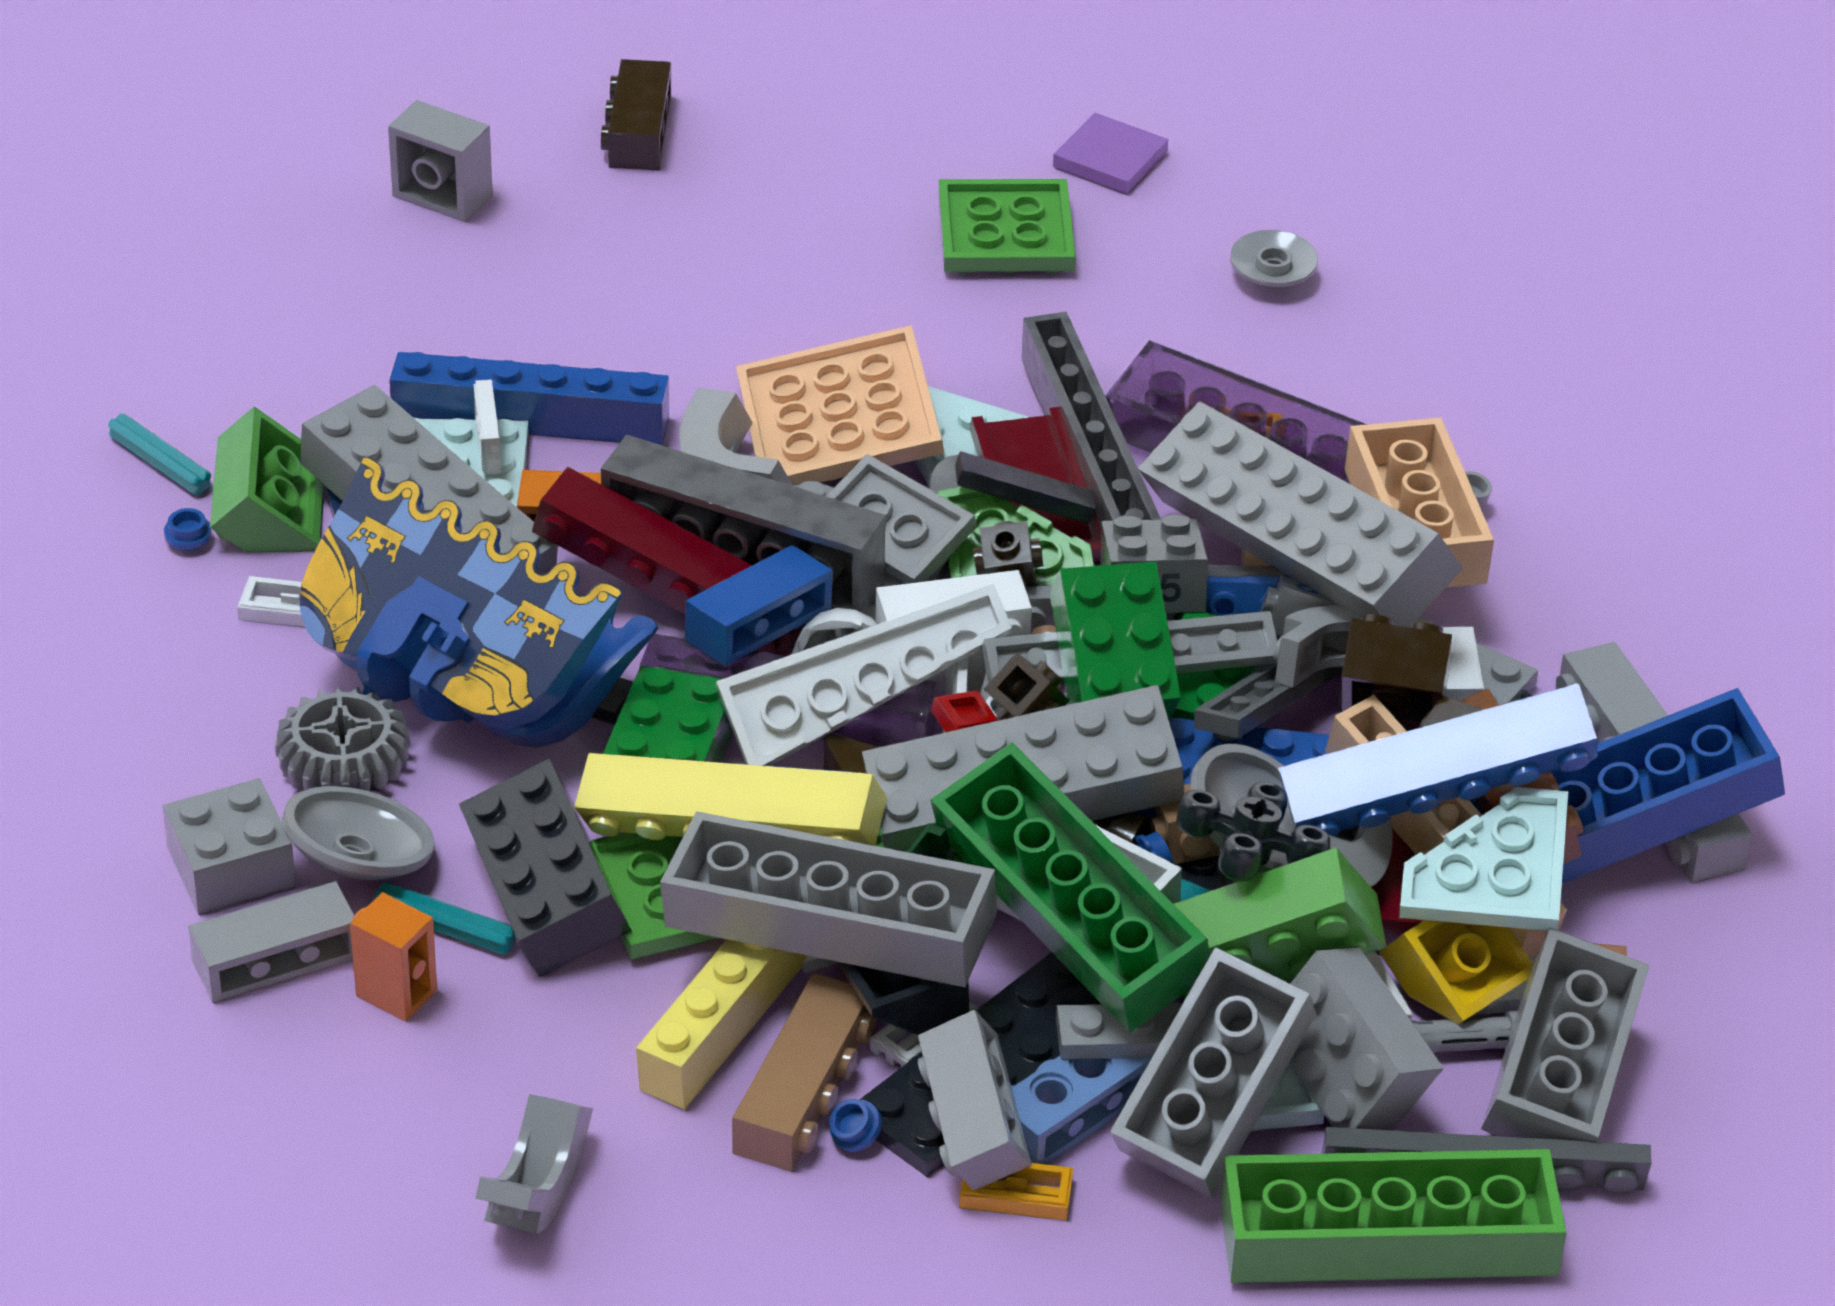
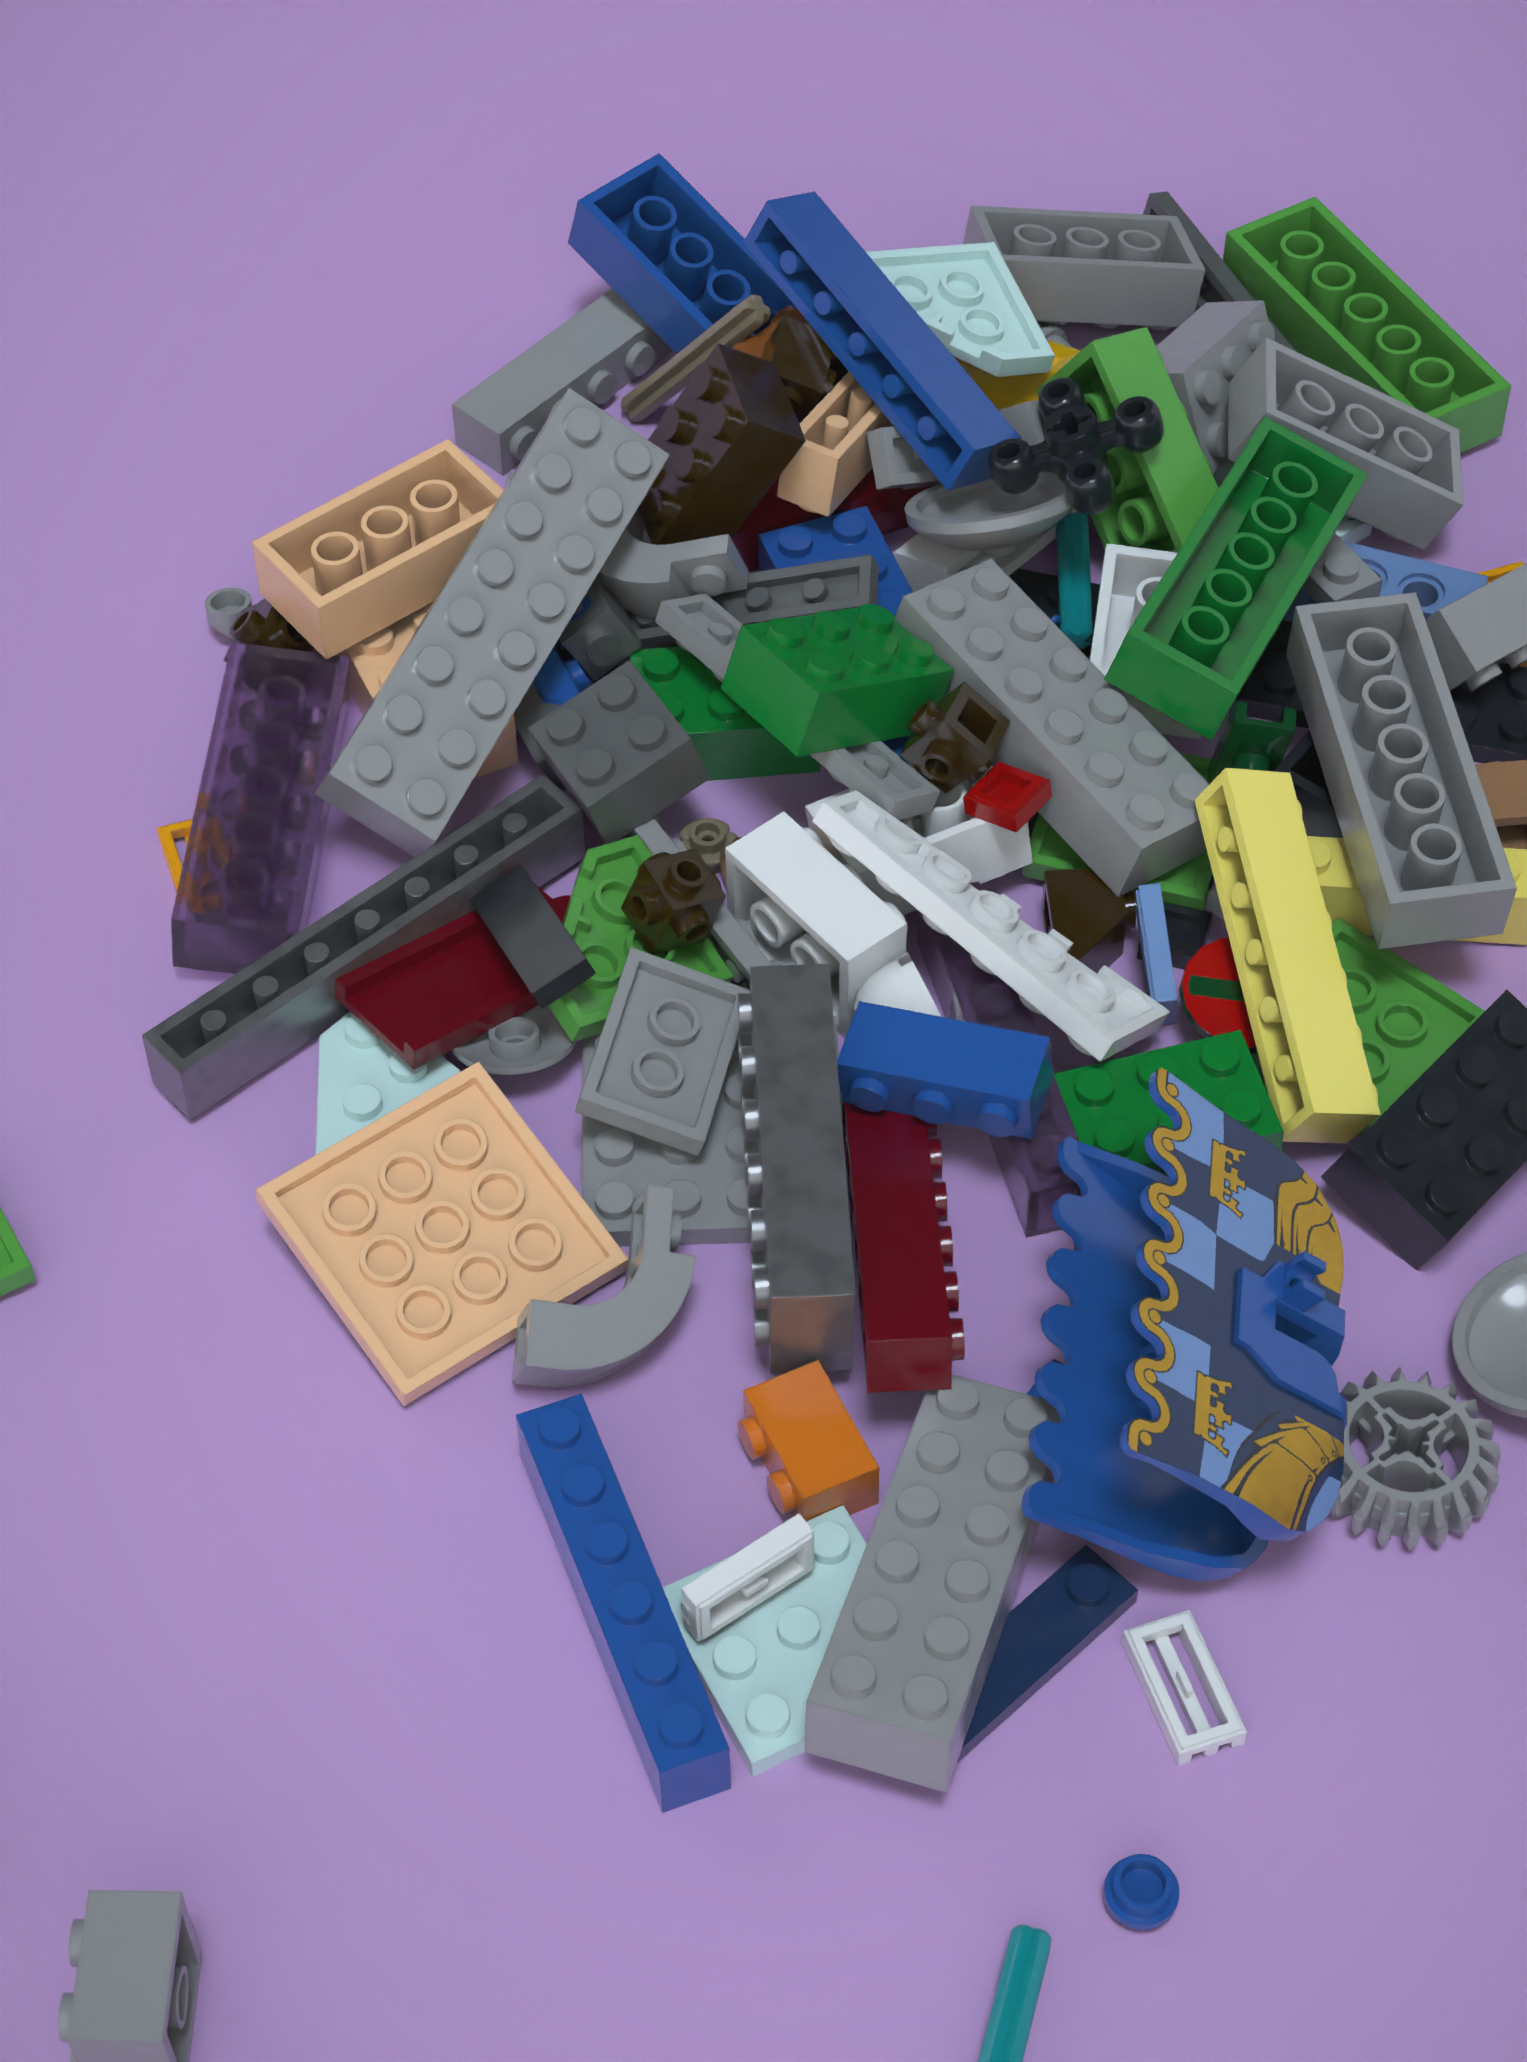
camera: 115 degrees left, 10 degrees up
(262, 490) = (1008, 1829): bright green slope -> none

